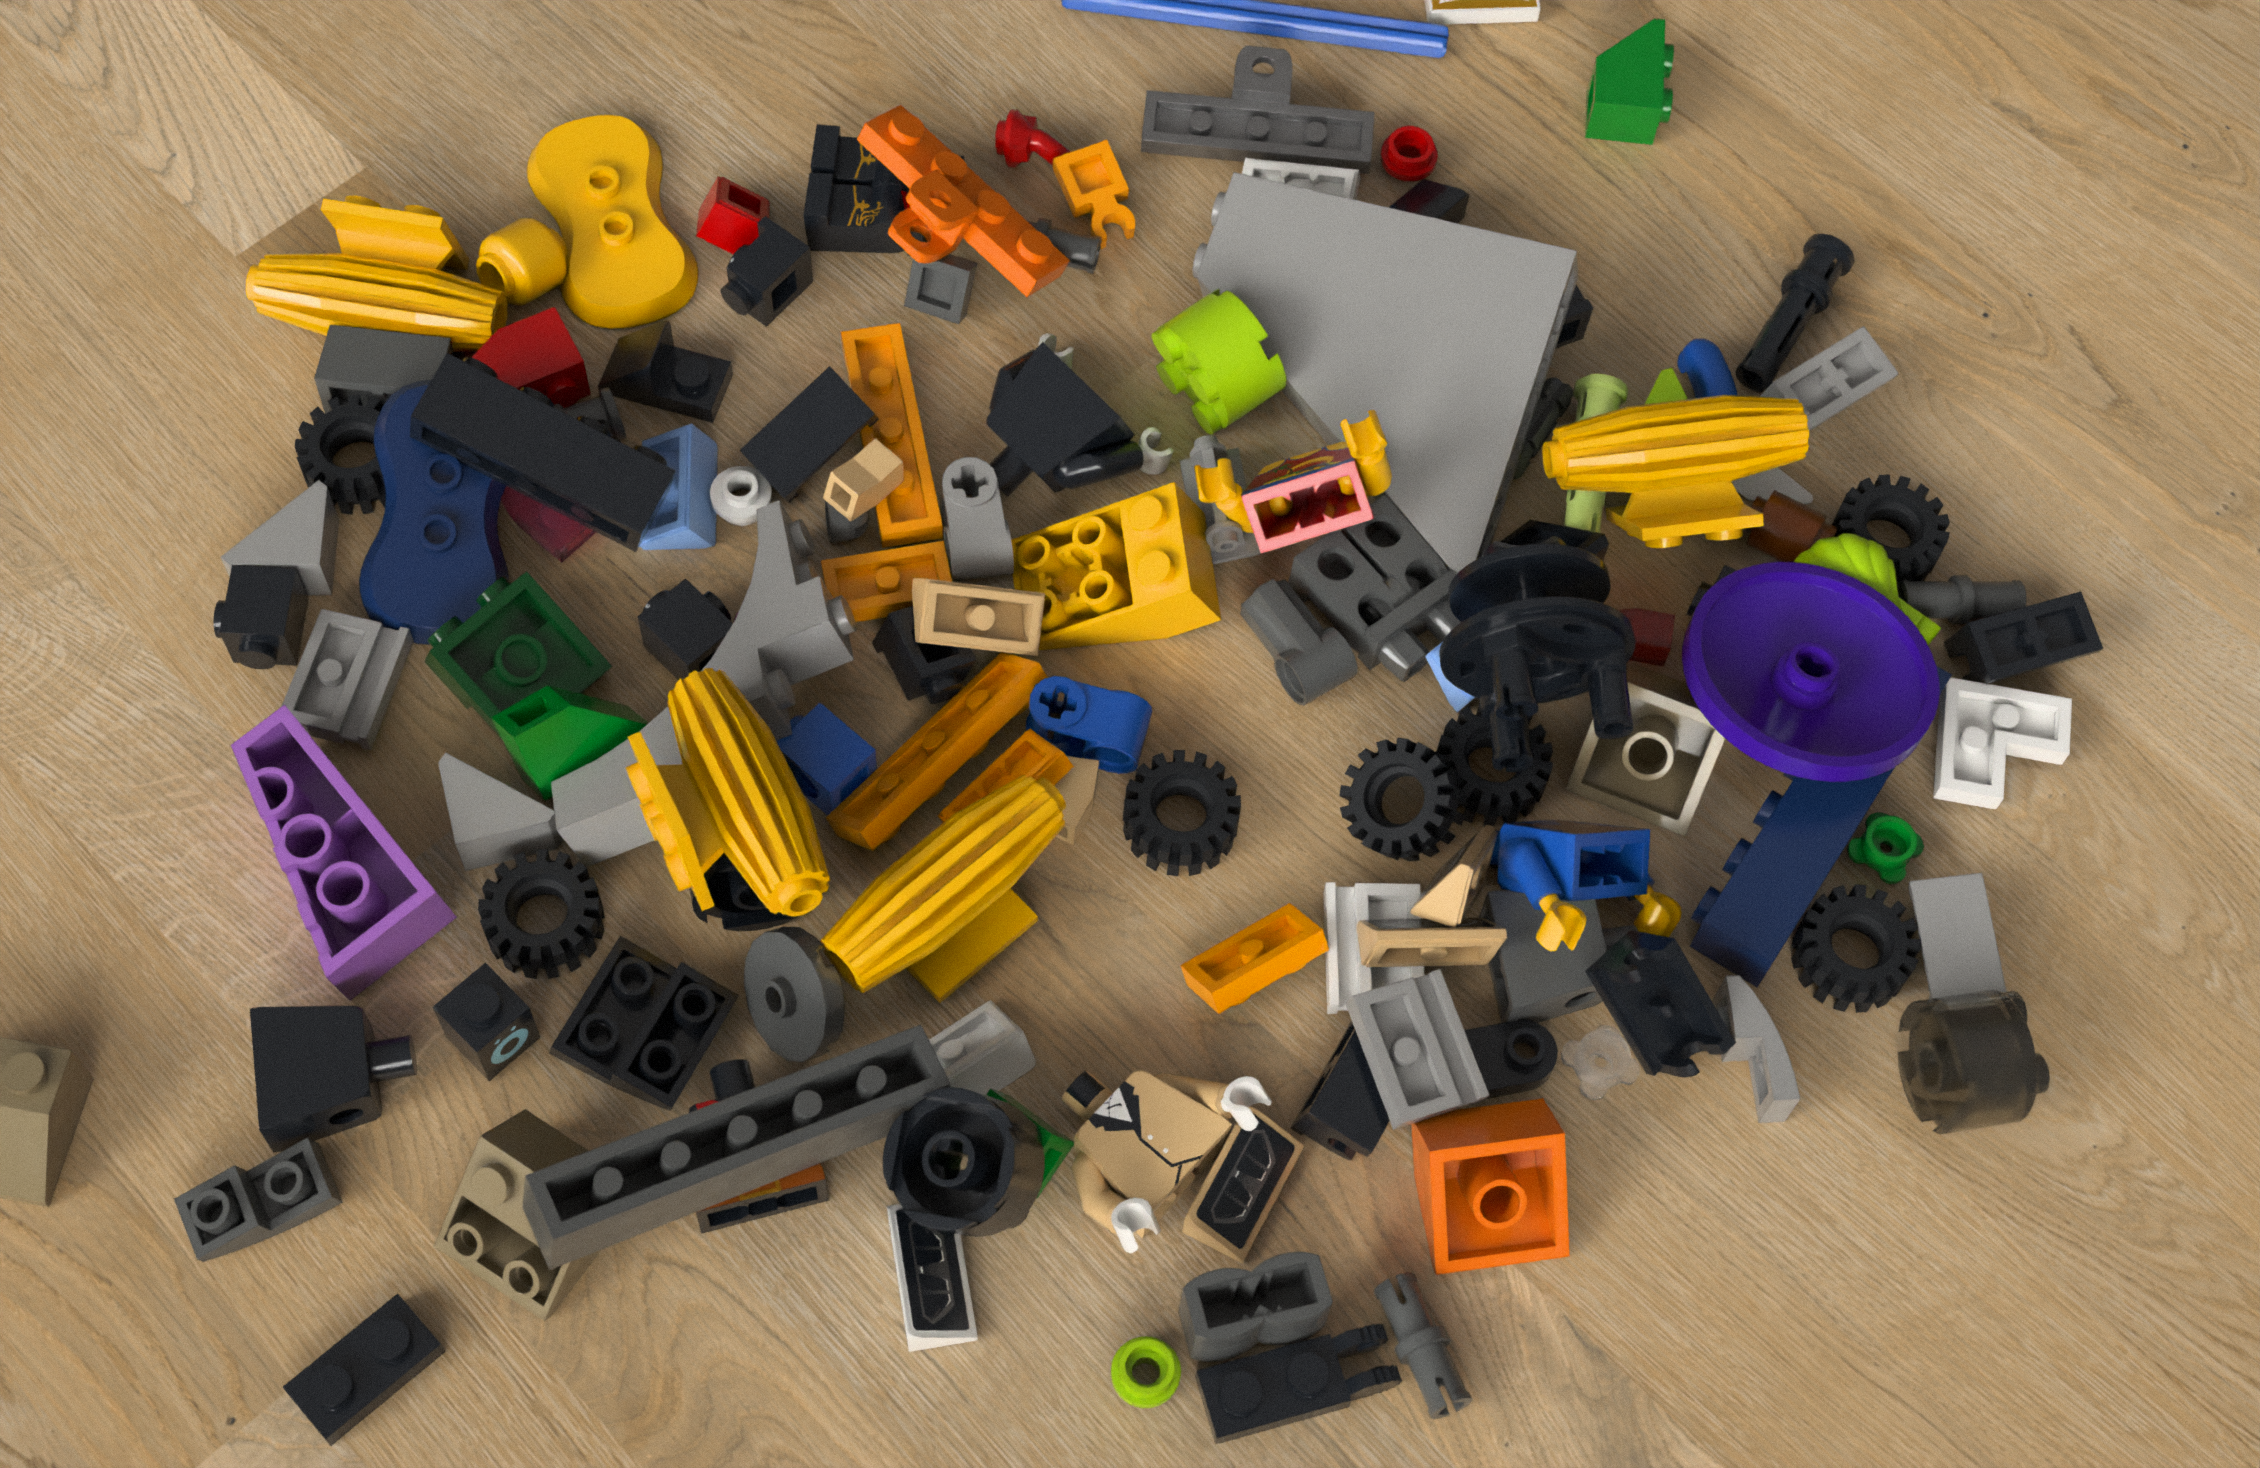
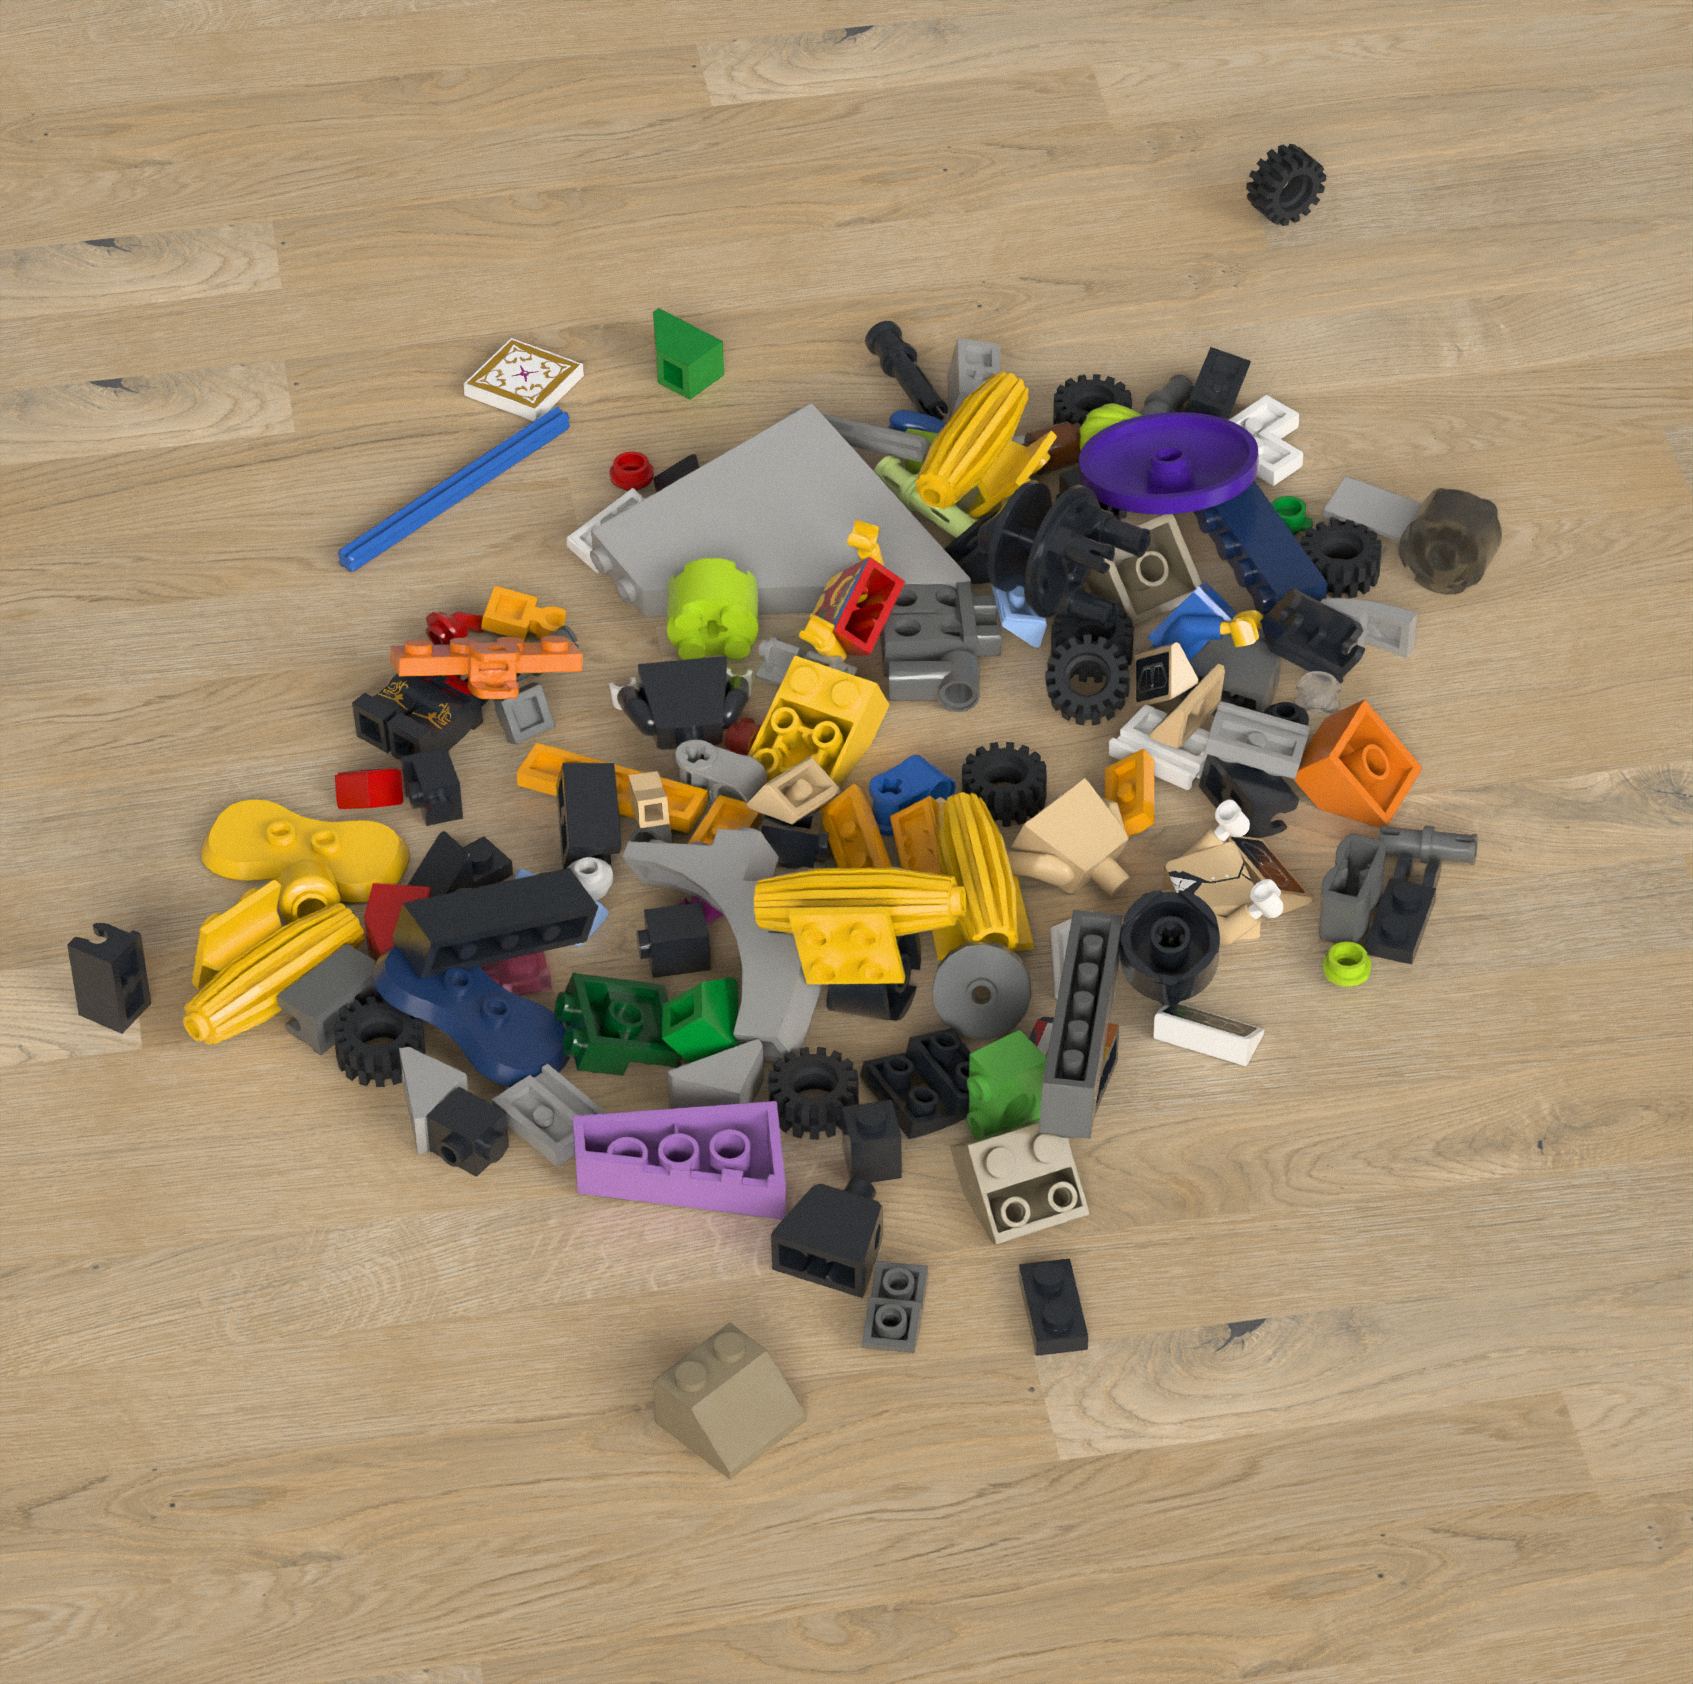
camera: 50 degrees left, 20 degrees down
(259, 170) = (110, 977): none -> black hinge
(622, 1102) = (1005, 1084): none -> bright green brick
(1059, 505) = (741, 736): none -> clear red plate
(1119, 943) = (1073, 843): none -> tan torso
(1257, 121) = (540, 522): flat silver plate -> none
(1631, 325) = (879, 438): none -> light grey axle

